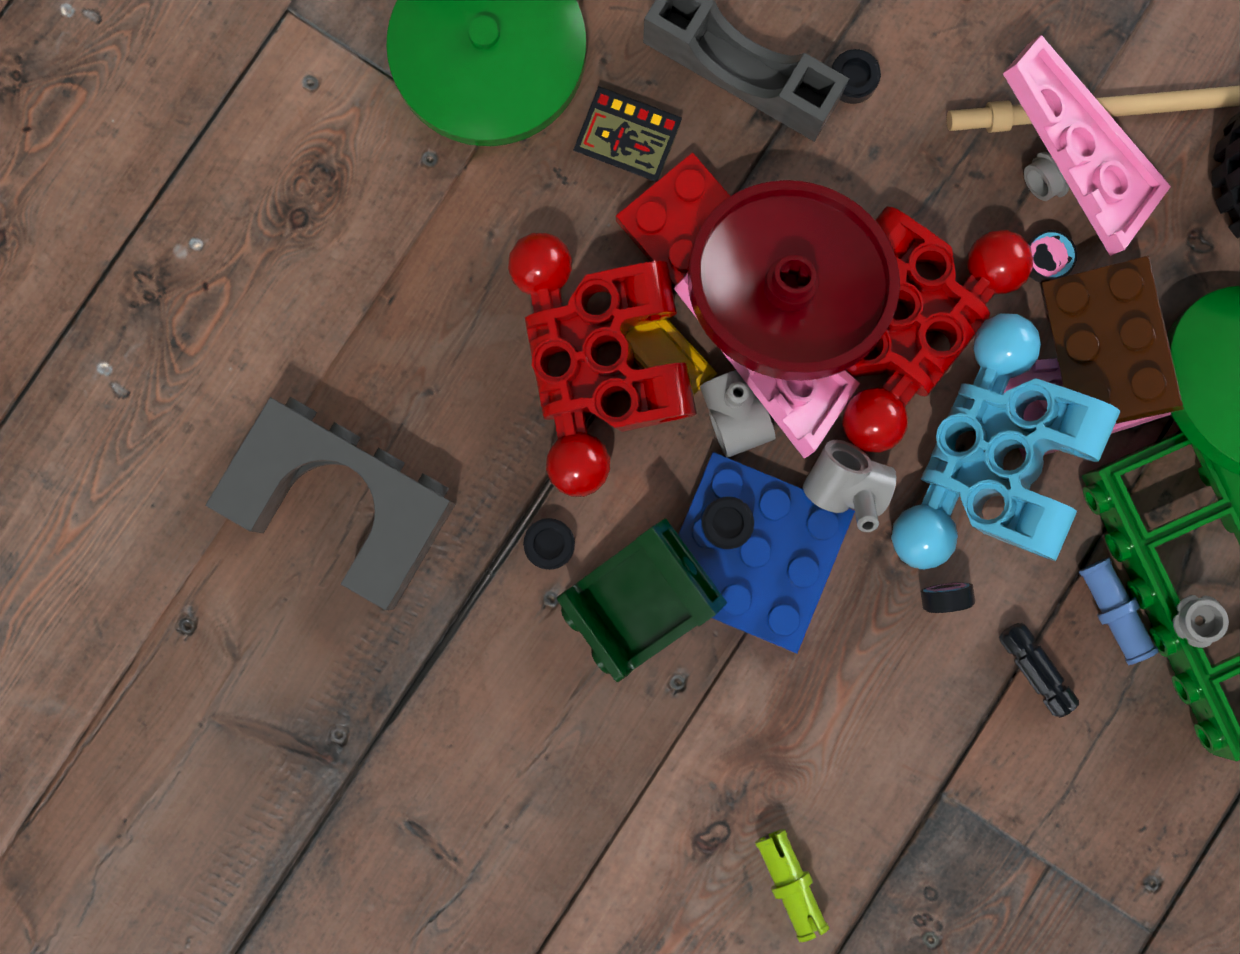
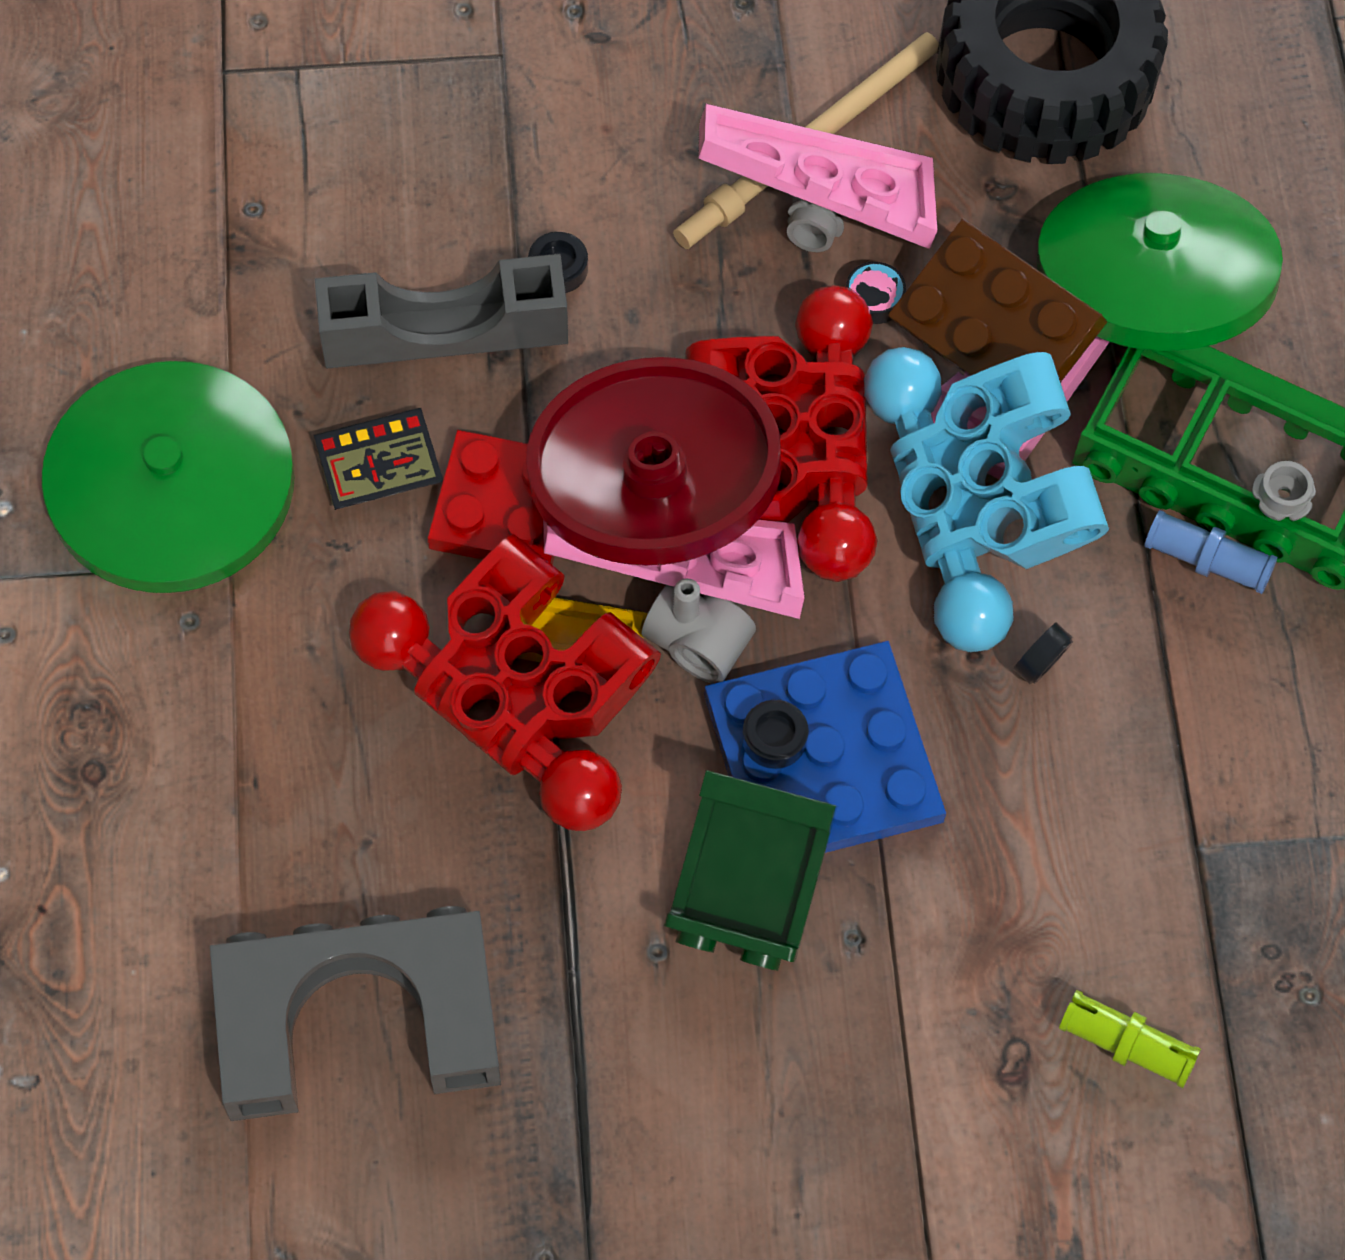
camera: 40 degrees left, 20 degrees down
(549, 544) = (612, 896): black tile -> none
(848, 479) = (859, 612): light grey piece -> none
(1039, 670) = (1186, 660): black axle -> none

